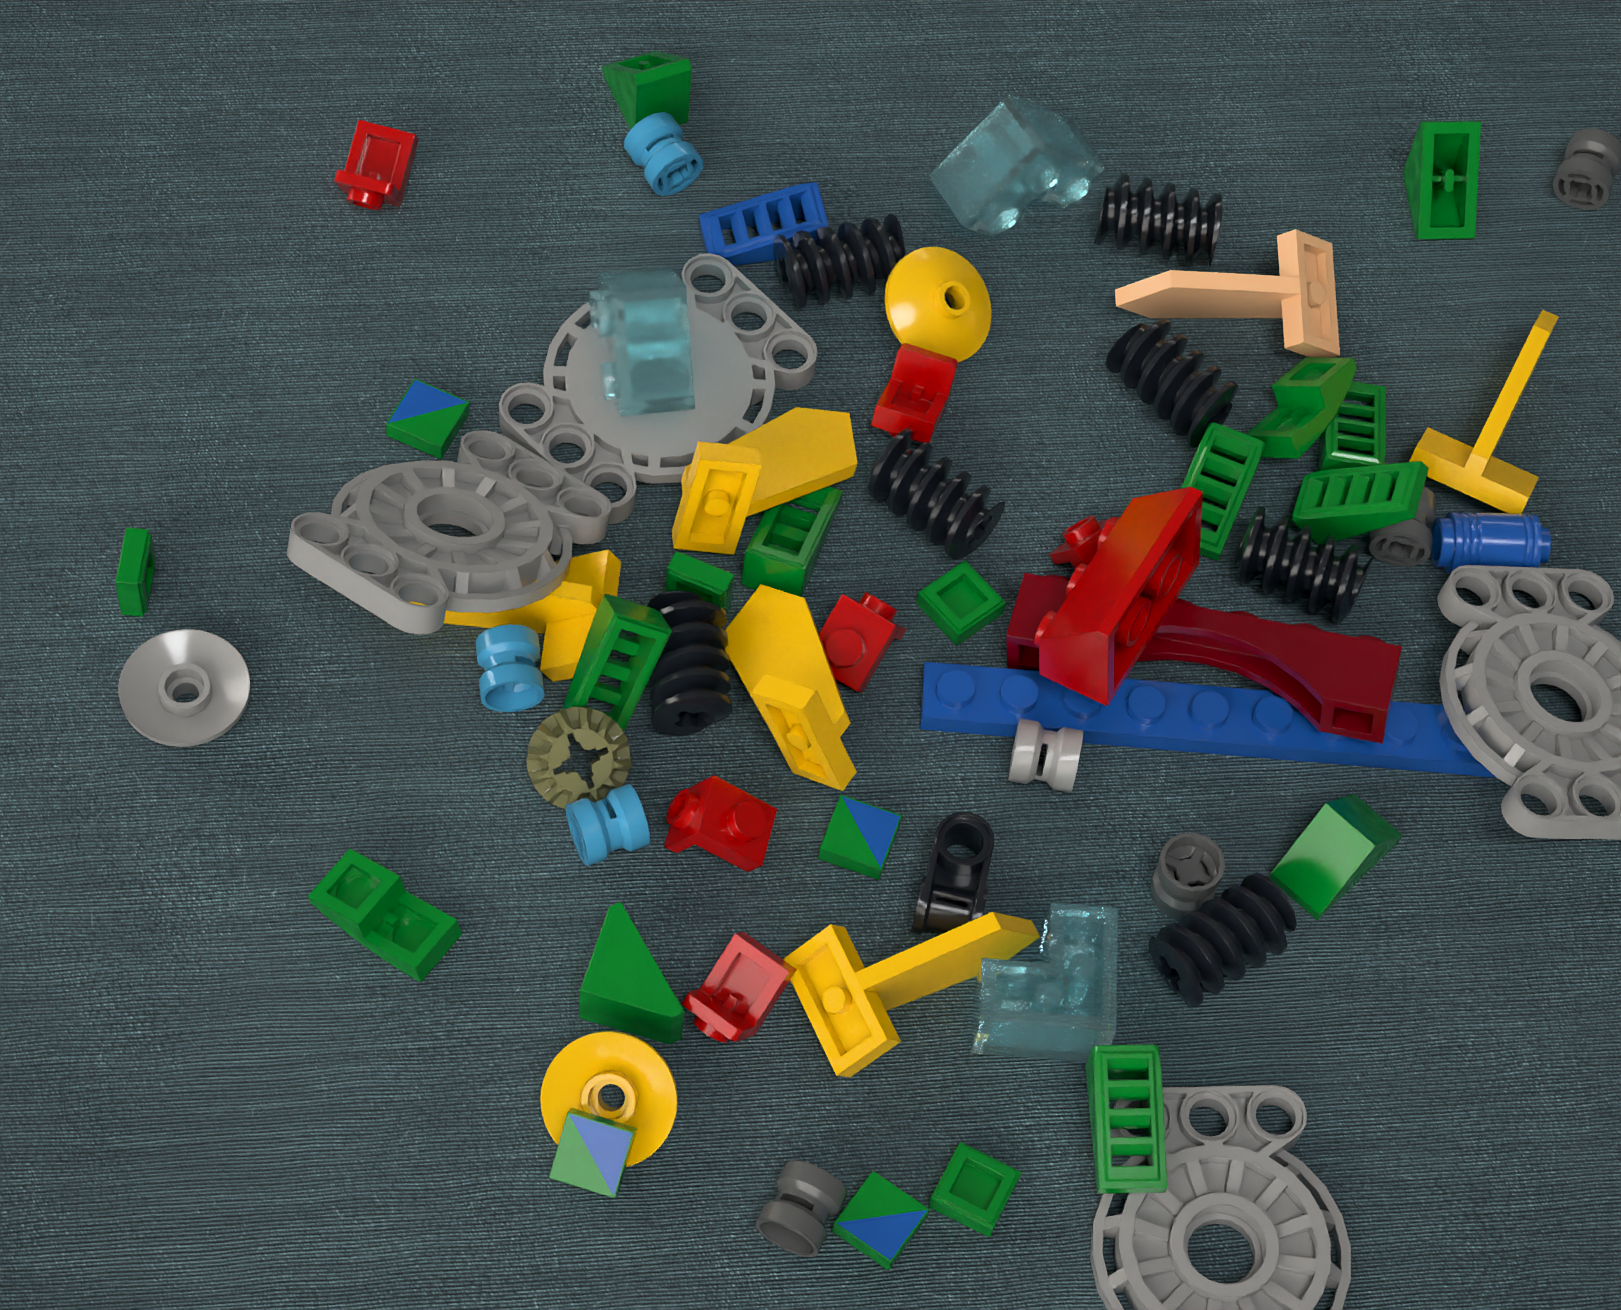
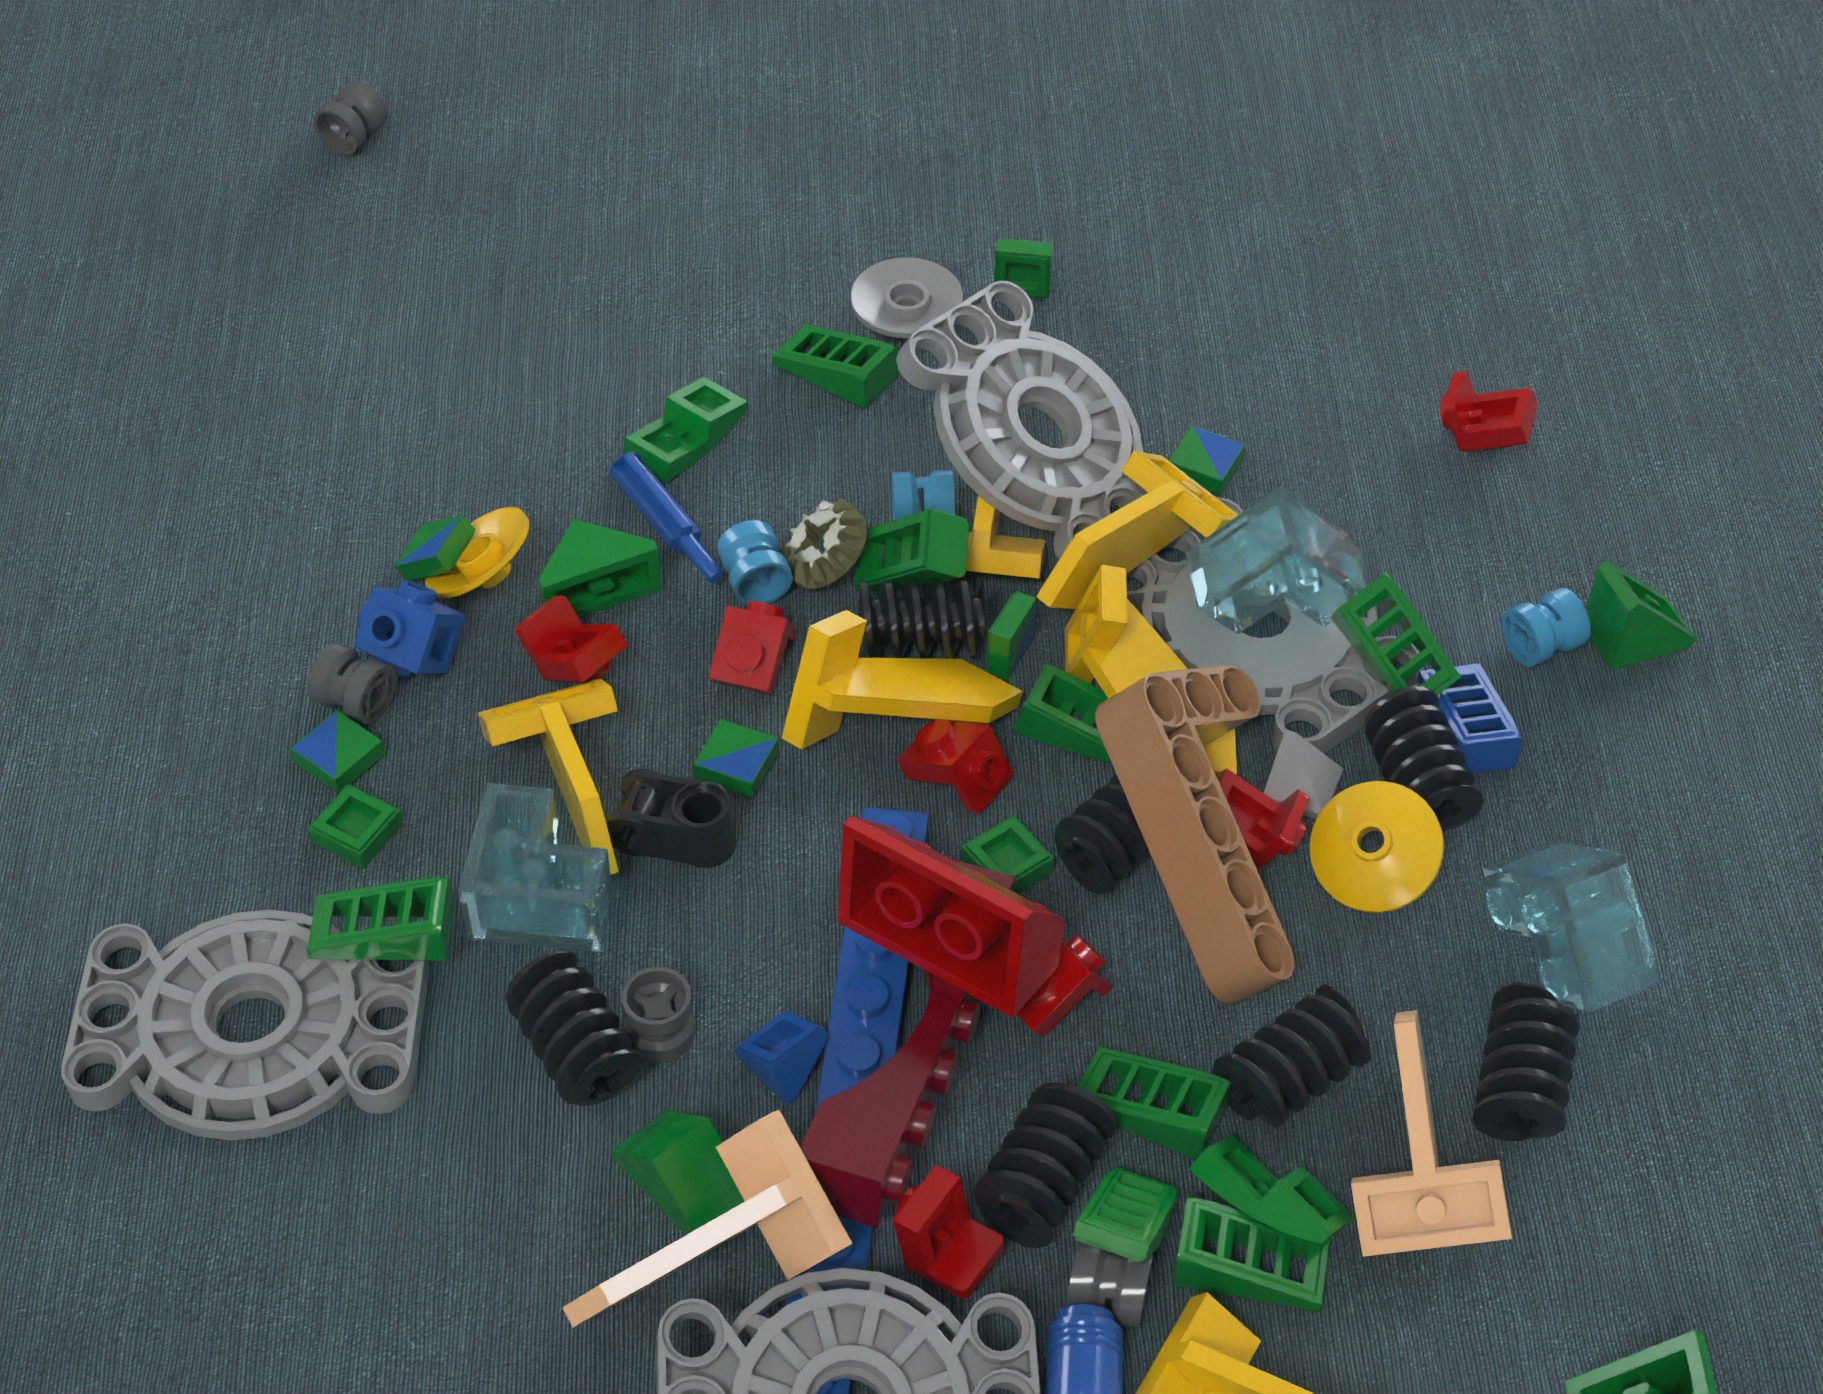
camera: 100 degrees right, 10 degrees down
(285, 713) = (860, 378): none -> green slope
(521, 927) = (663, 512): none -> blue axle
(554, 422) = (1136, 529): none -> yellow piece
(719, 259) = (1414, 631): none -> green slope
(735, 1151) = (409, 629): none -> blue brick
(849, 366) = (1303, 768): none -> light grey slope
(949, 421) = (1158, 753): none -> medium nougat beam
(1059, 760) = (807, 912): light grey wheel -> none
(1197, 779) = (783, 1053): none -> blue slope
(1391, 626) = (940, 1236): none -> red bracket
(1444, 799) = (778, 1197): none -> light nougat piece

